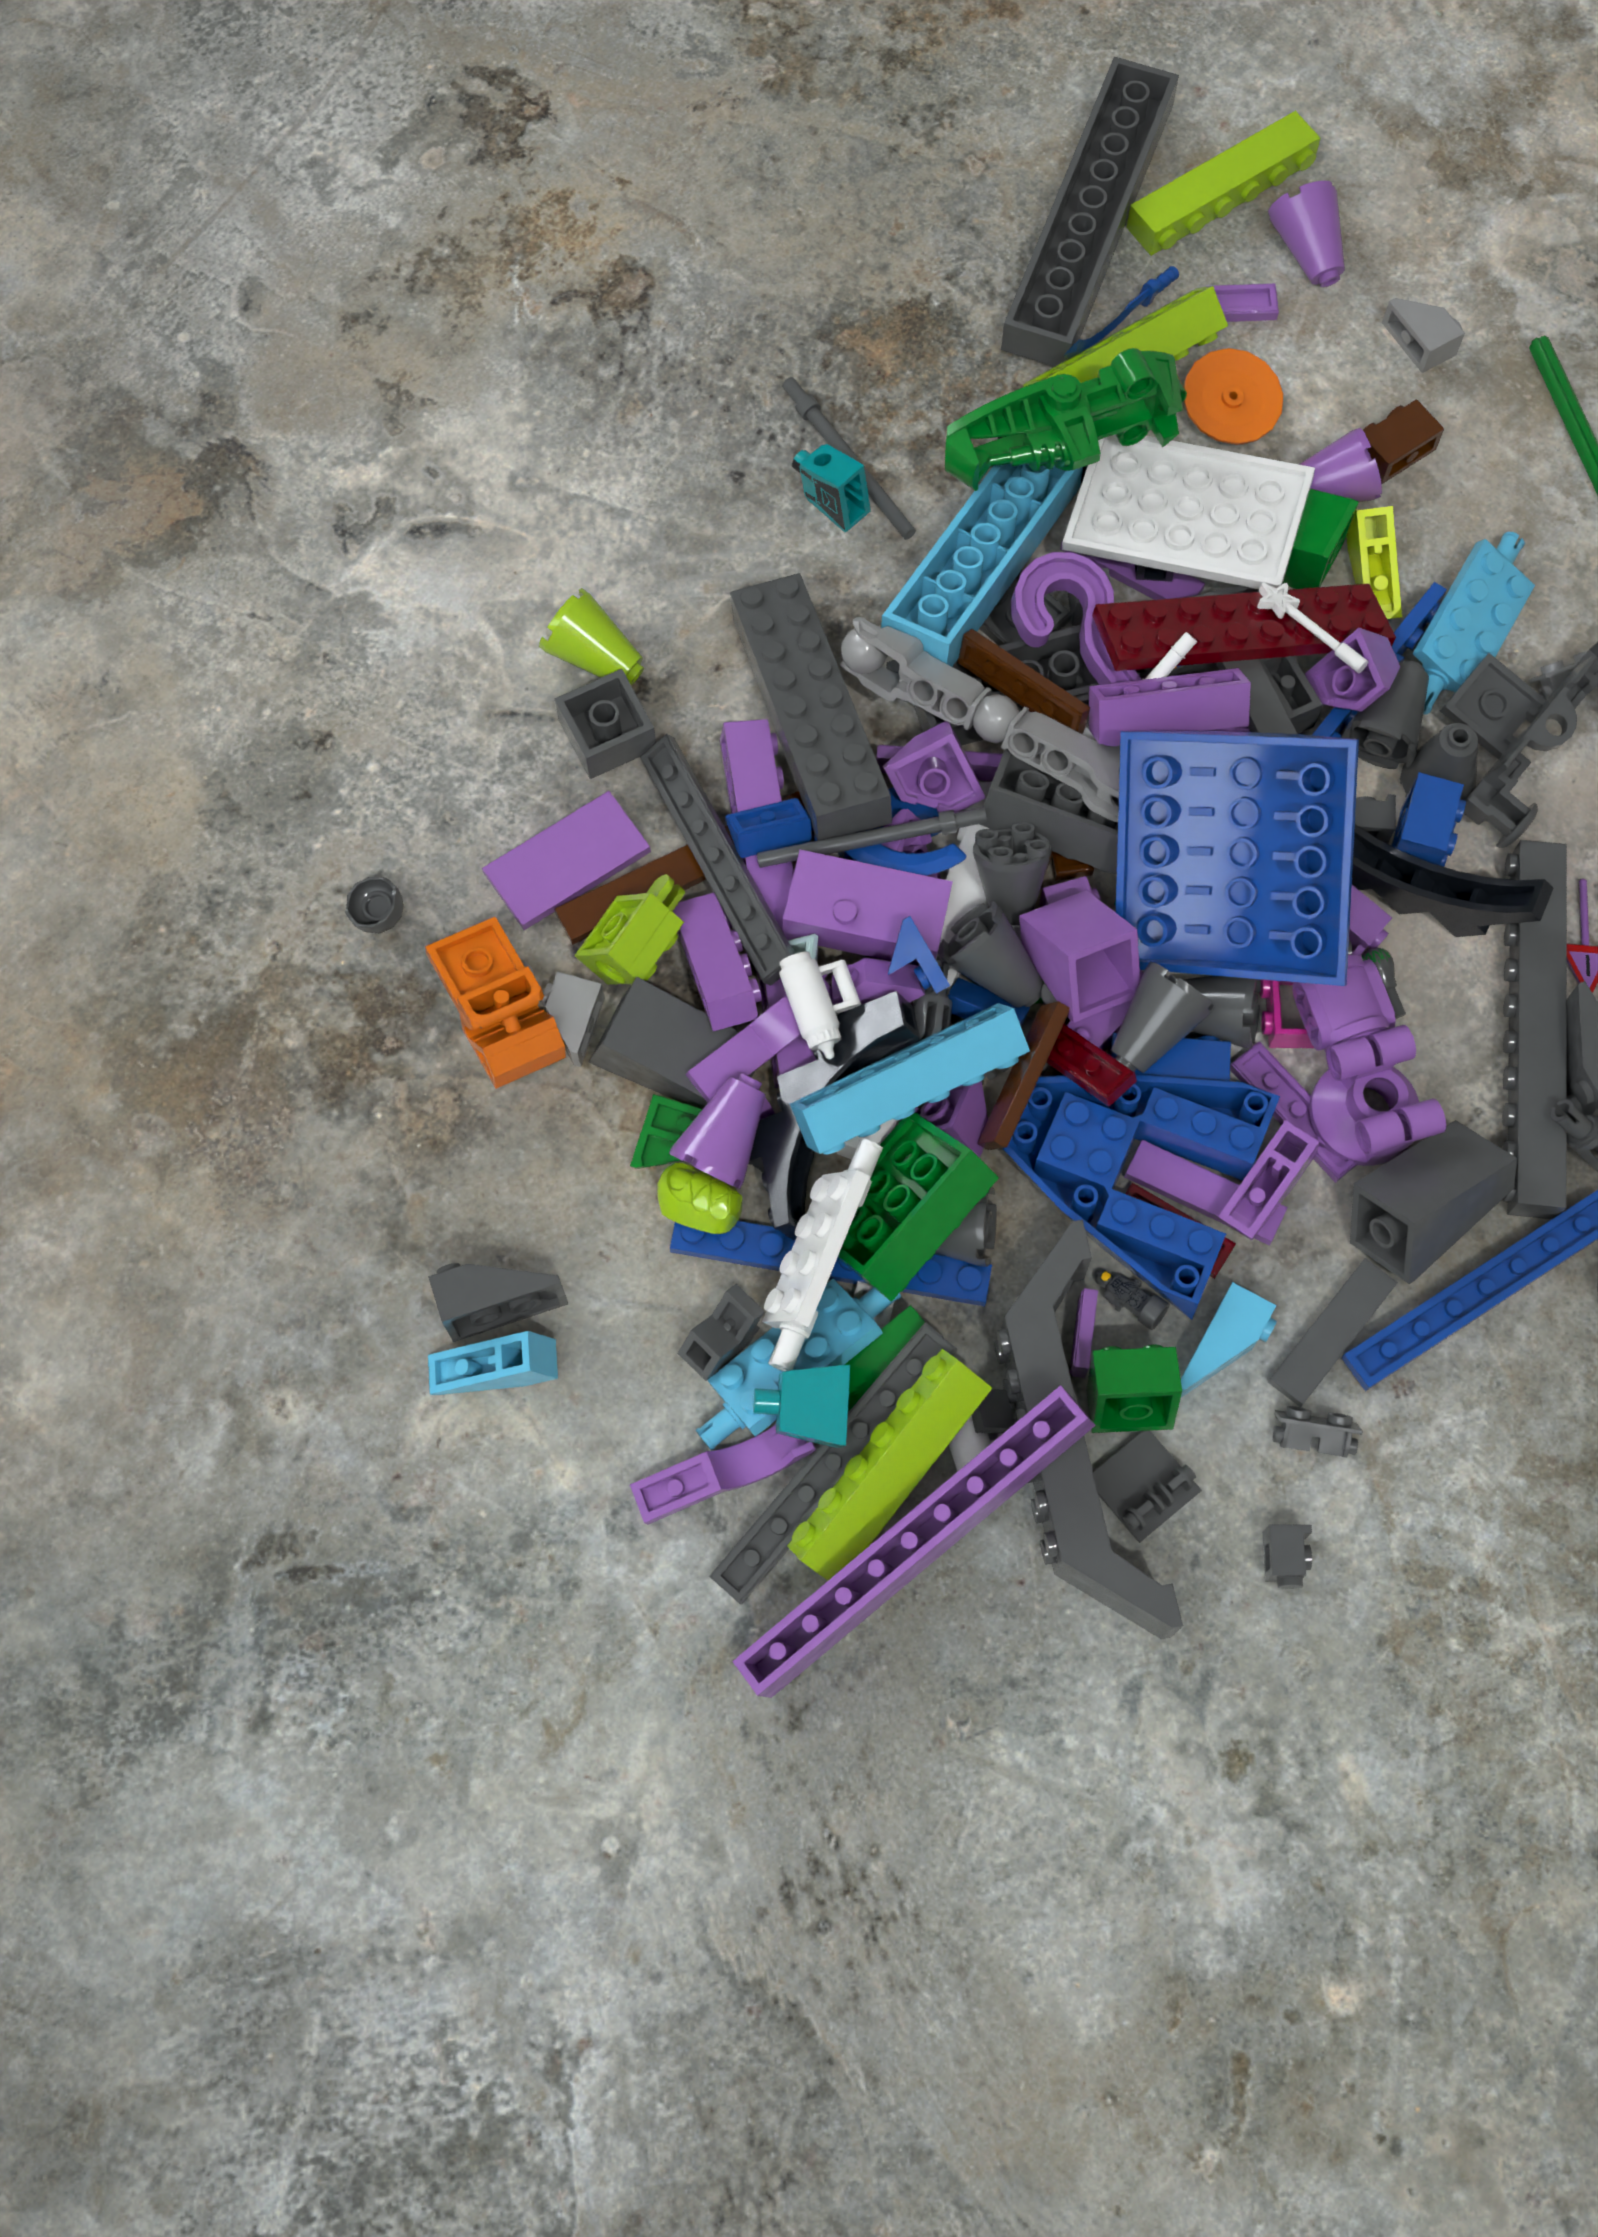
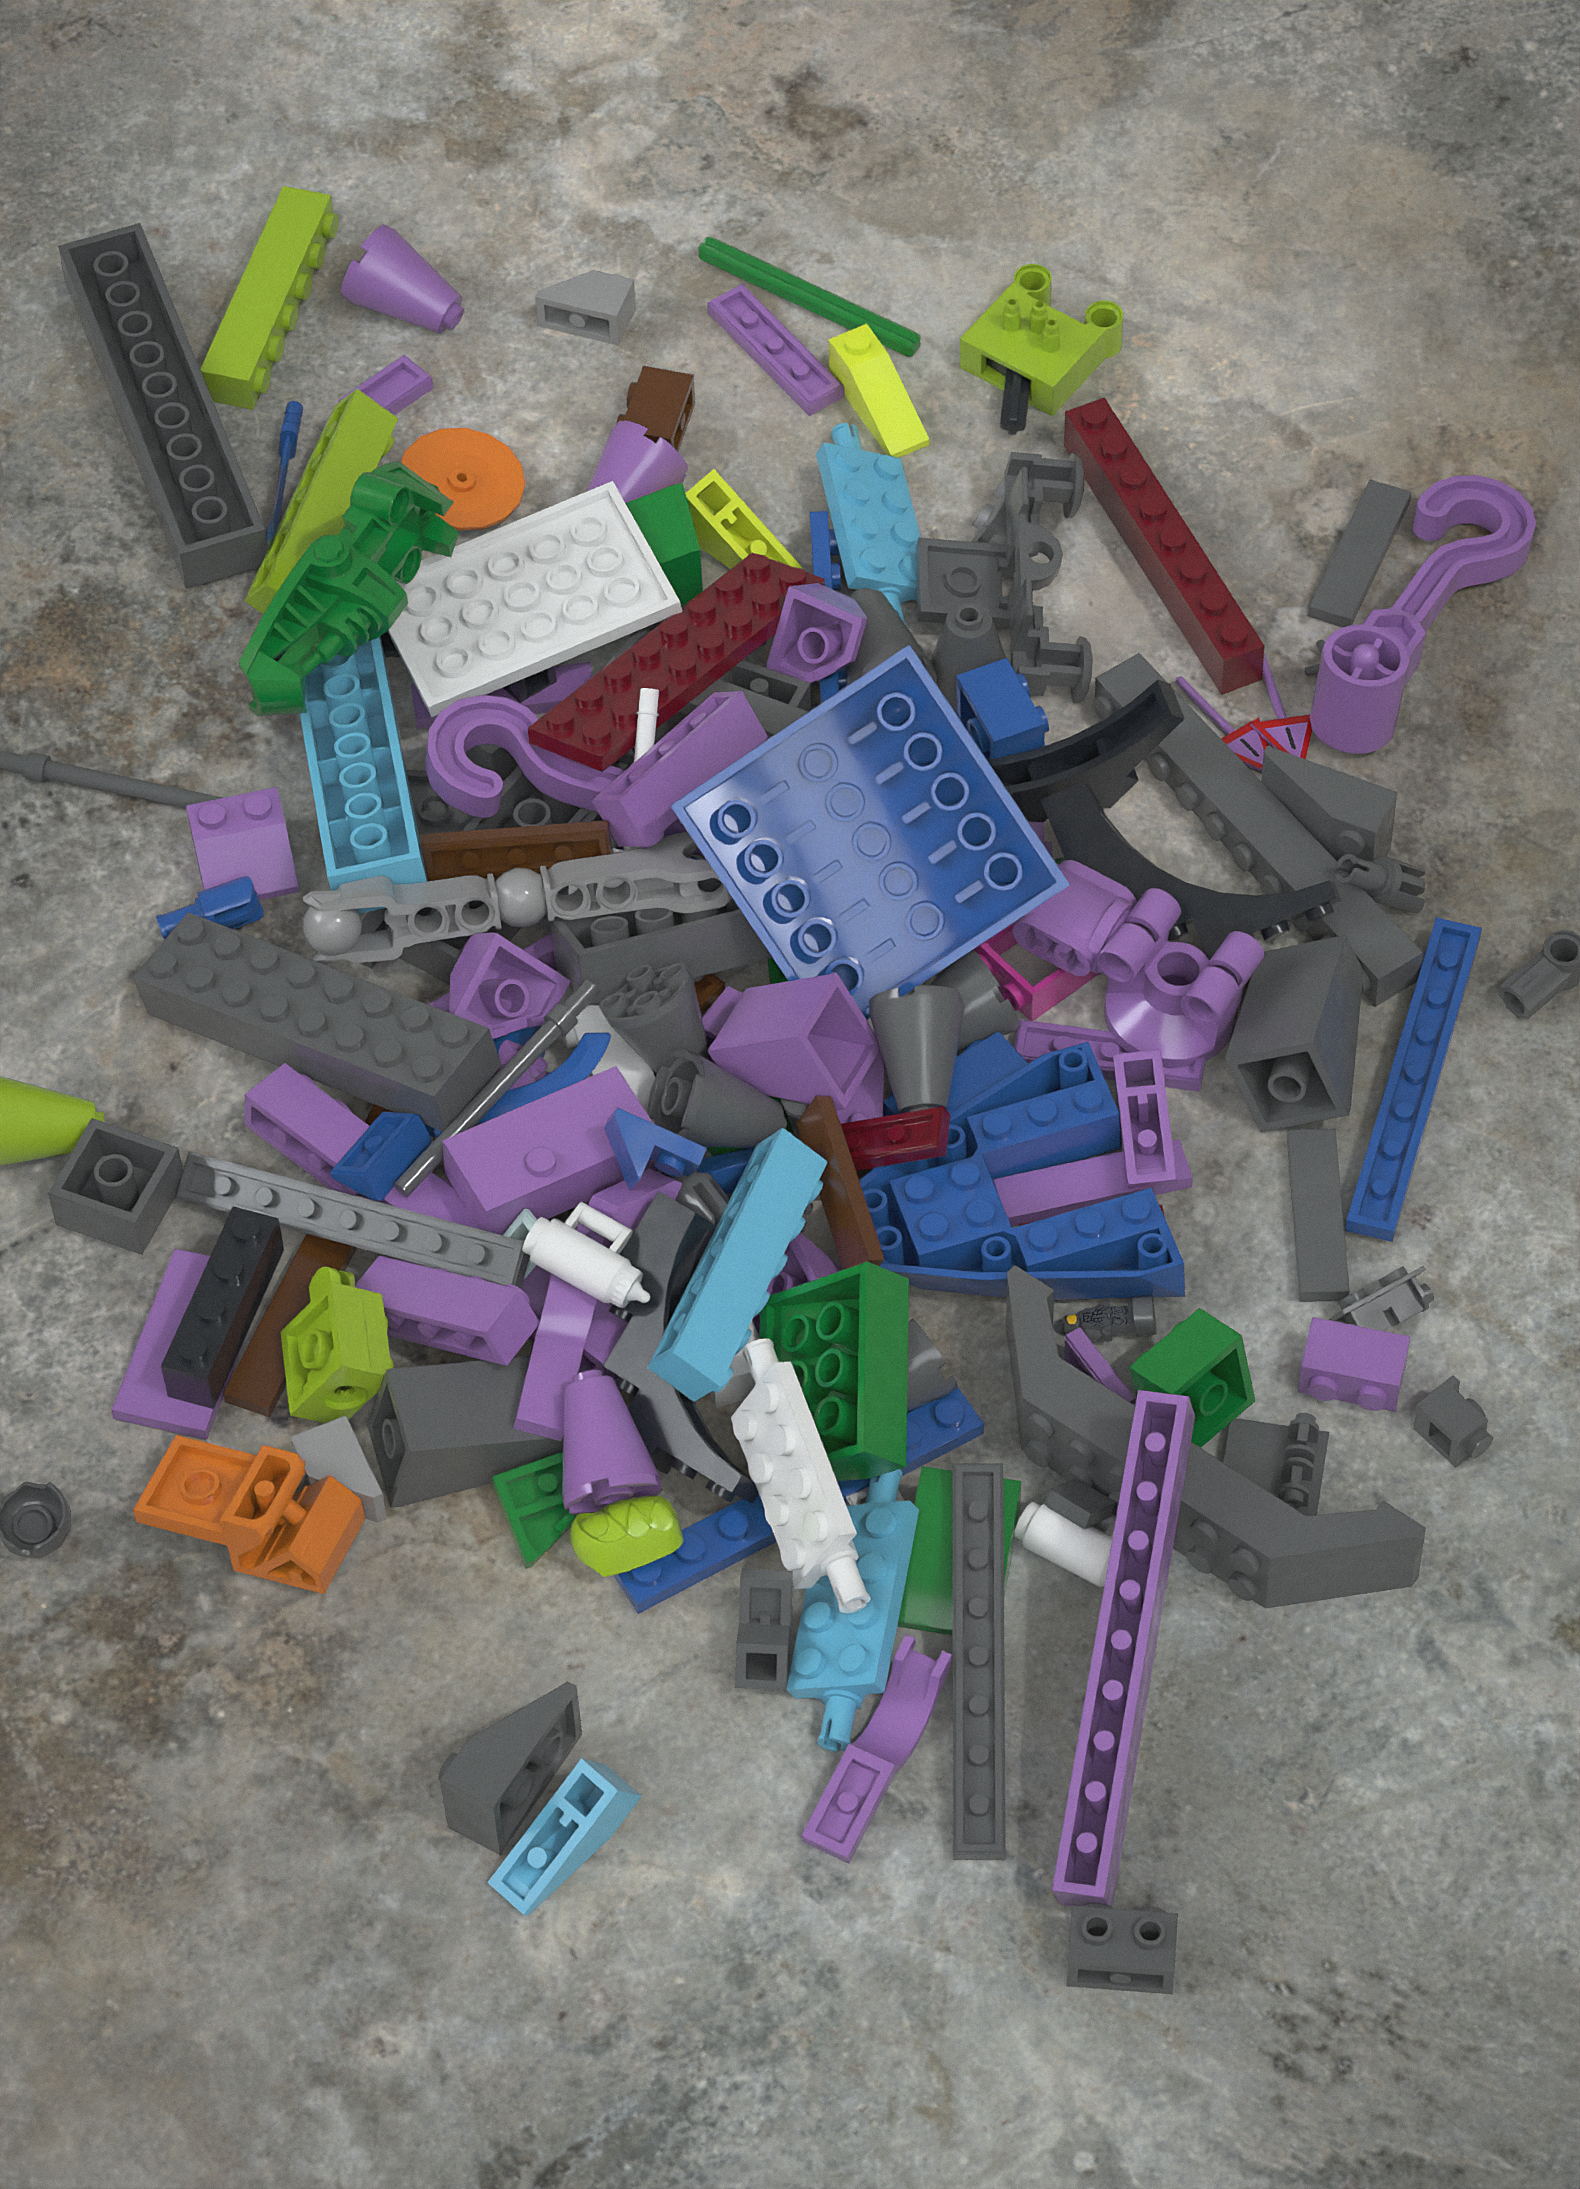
camera: 40 degrees left, 15 degrees down
(593, 853) = (222, 1307): none -> black brick
(752, 1730) = (1122, 1948): none -> dark grey brick
(809, 1404) = (916, 1610): teal torso -> none
(828, 583) = (226, 904): none -> blue arm
(834, 485) = (139, 814): teal torso -> none
(877, 552) = (242, 839): none -> medium lavender slope
(889, 1465) = (1036, 1614): lime brick -> none
(1230, 1335) = (1229, 1271): medium azure slope -> none
(1257, 1459) = (1353, 1364): none -> medium lavender brick
(1281, 602) = (700, 614): white piece -> none
(1407, 973) = (1094, 841): none -> black arch
(1522, 448) = (775, 349): none -> medium lavender tile
(1560, 526) = (876, 391): none -> neon yellow slope

